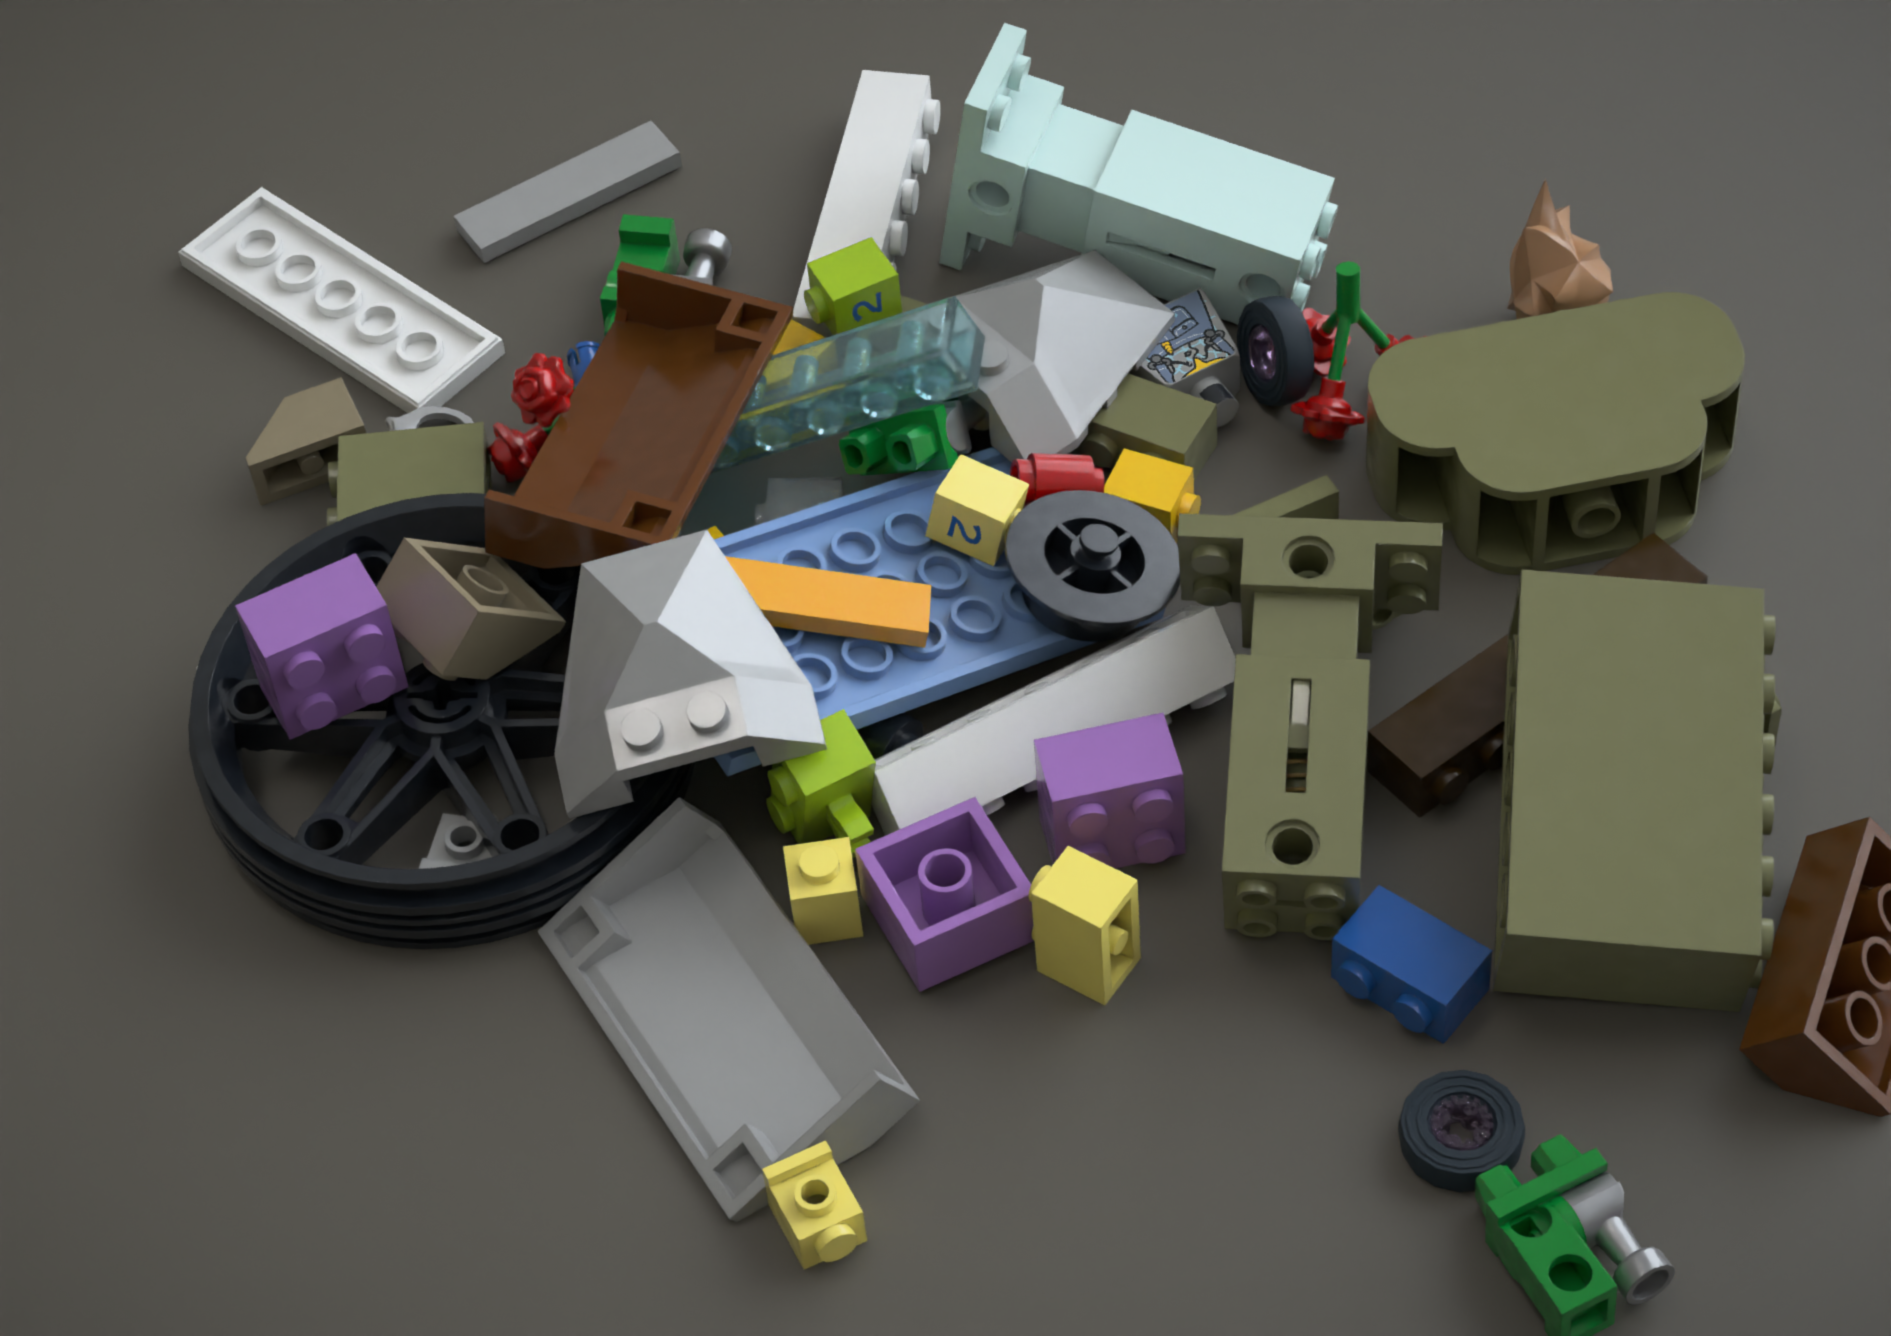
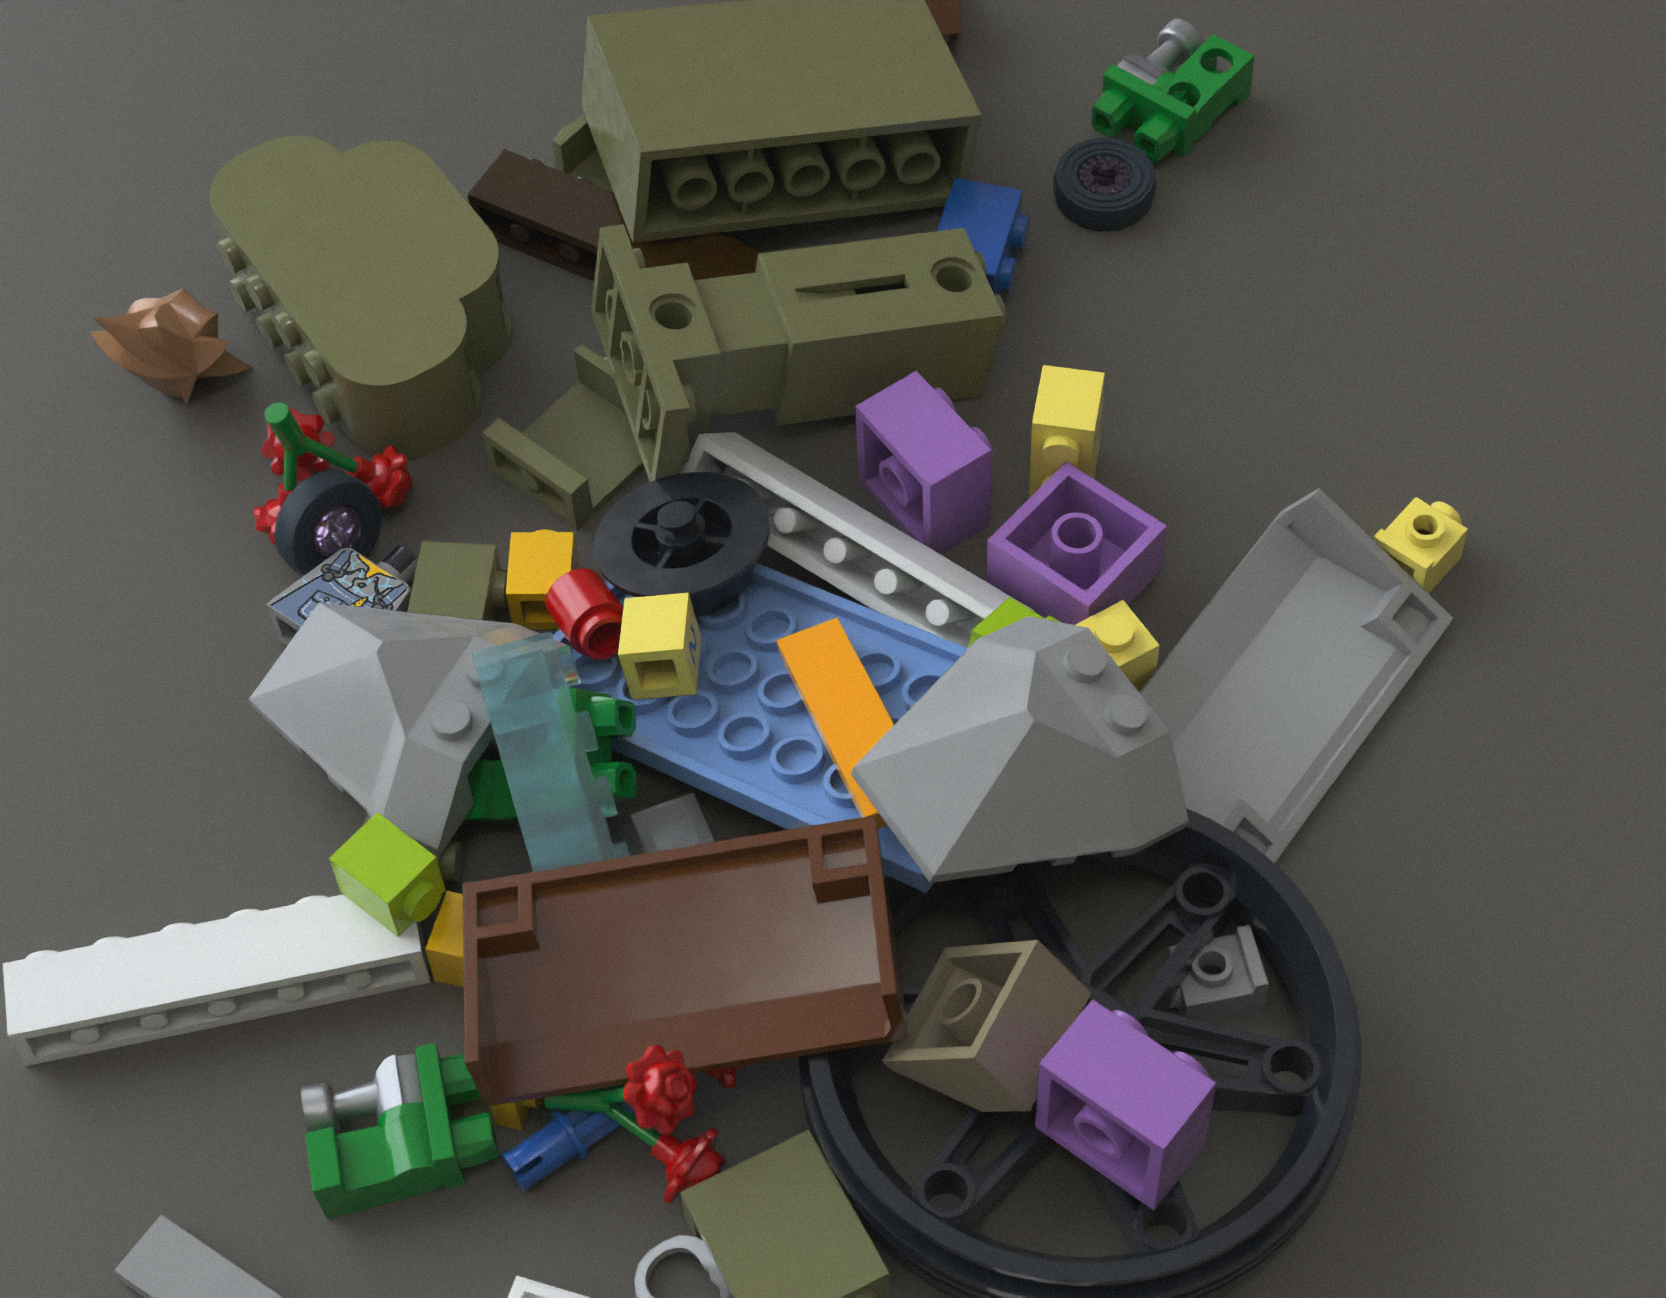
camera: 115 degrees left, 5 degrees up
(1144, 194) = (179, 671): light aqua brick -> none

